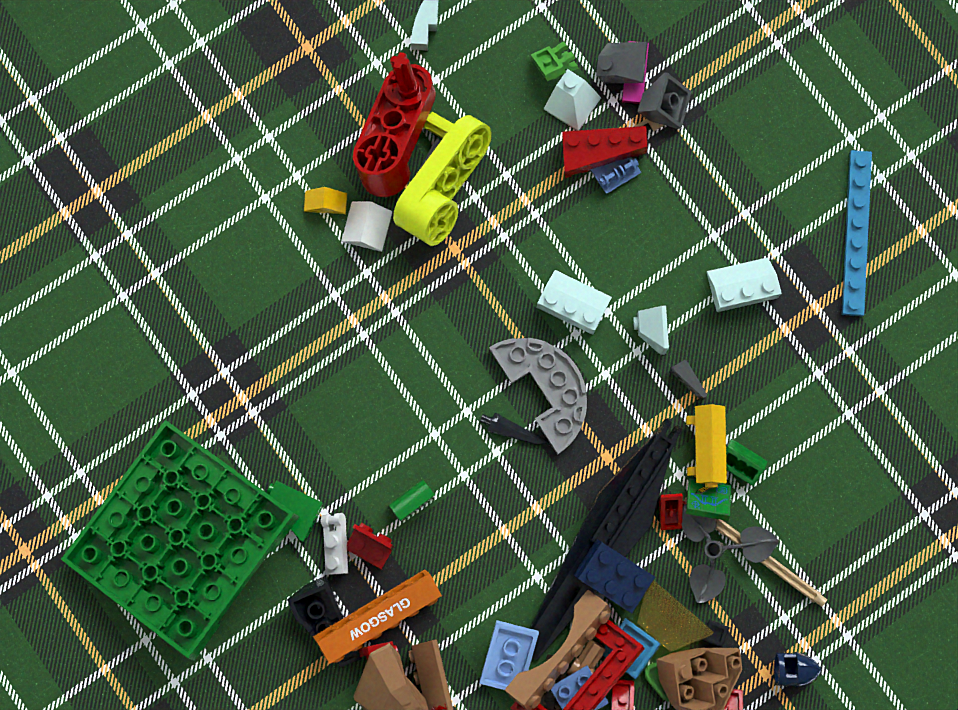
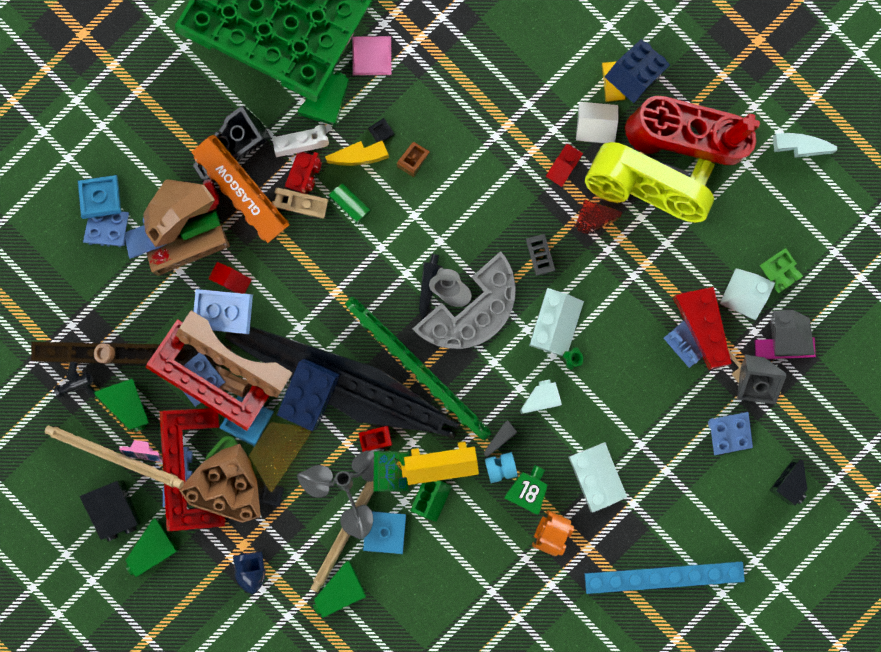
camera: 80 degrees right, 5 degrees up
(253, 453) = (371, 55): none -> bright pink piece
(321, 172) = (637, 70): none -> dark blue brick
(338, 455) = (381, 131): none -> black tile
(360, 482) = (358, 155): none -> yellow slope
(374, 425) = (412, 159): none -> dark orange slope
(402, 553) = (301, 203): none -> tan plate
(407, 267) = (564, 165): none -> red slope
(412, 665) = (200, 224): none -> green slope
(468, 243) = (594, 217): none -> clear red slope
(473, 645) = (230, 278): none -> red slope
(497, 299) = (545, 270): none -> dark grey slope
(521, 406) = (450, 288): none -> light grey piece
(594, 460) = (423, 374): none -> green plate
(616, 285) = (578, 358): none -> green plate
(715, 140) = (730, 433): none -> medium blue hinge
(720, 382) = (501, 467): none -> medium azure wheel
(748, 358) = (528, 490): none -> green torso
(773, 514) = (386, 533): none -> dark azure plate
(777, 86) = (791, 483): none -> black slope
(798, 338) = (552, 534): none -> orange brick
(829, 575) = (339, 592): none -> green slope

